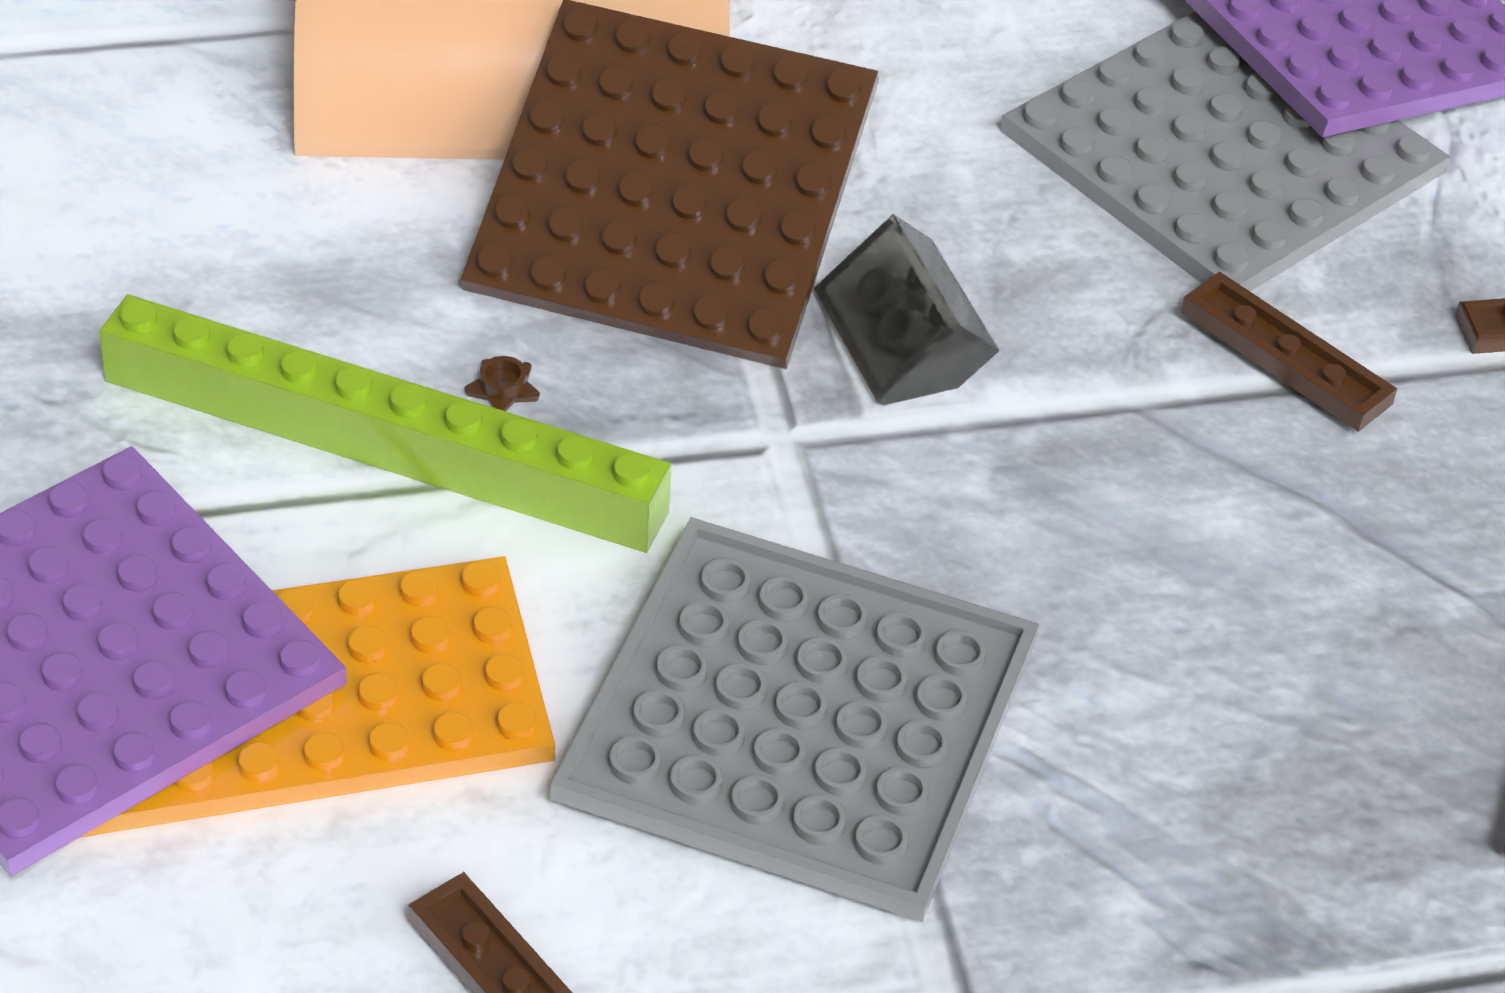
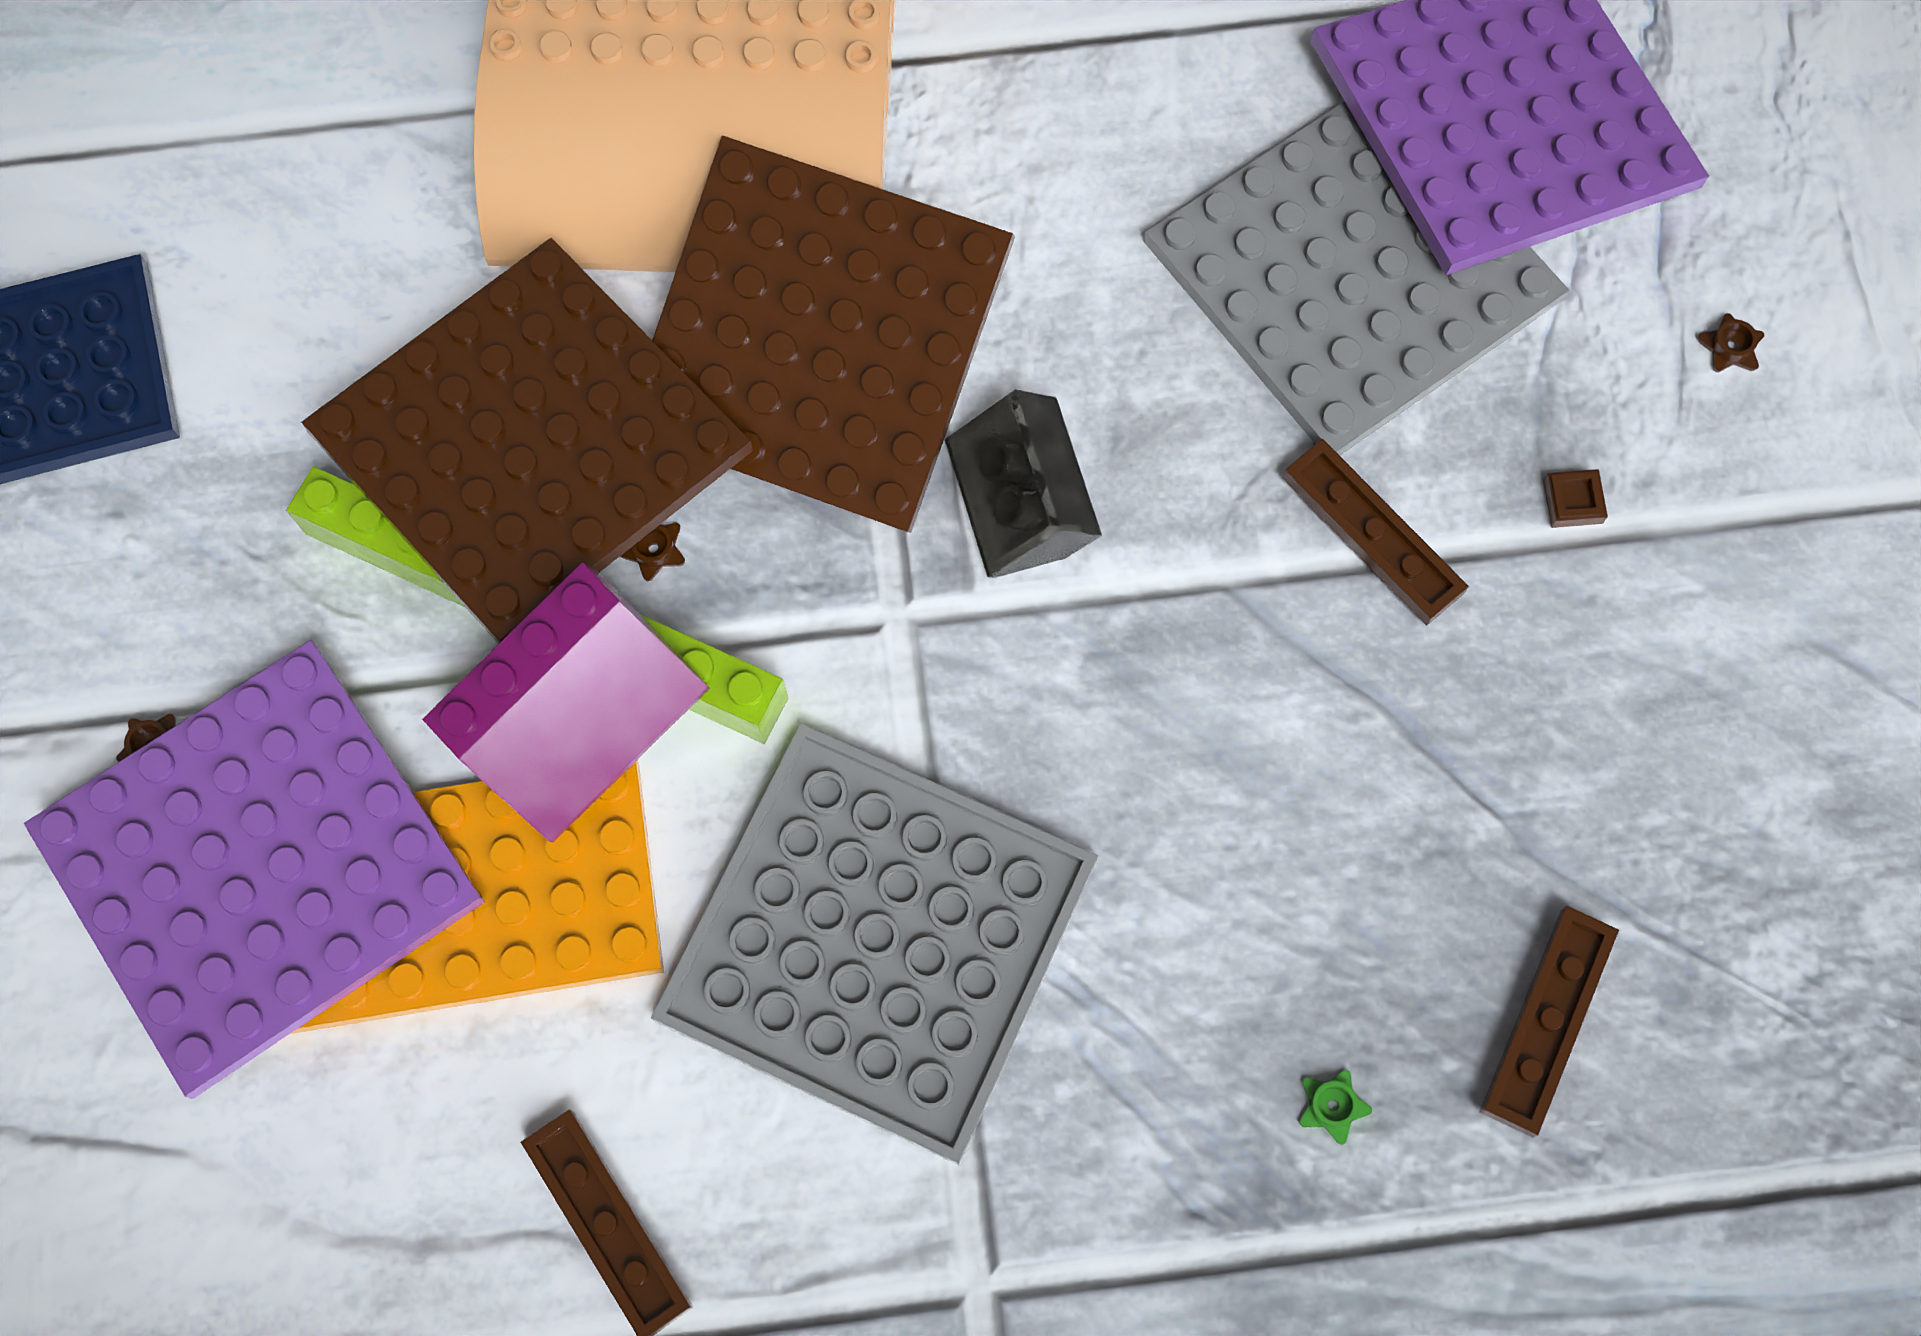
camera: 10 degrees right, 25 degrees up
(367, 264) = (527, 437): none -> reddish brown plate
(434, 476) = (566, 702): none -> slope
(1341, 839) = (1349, 1105): none -> bright green plate

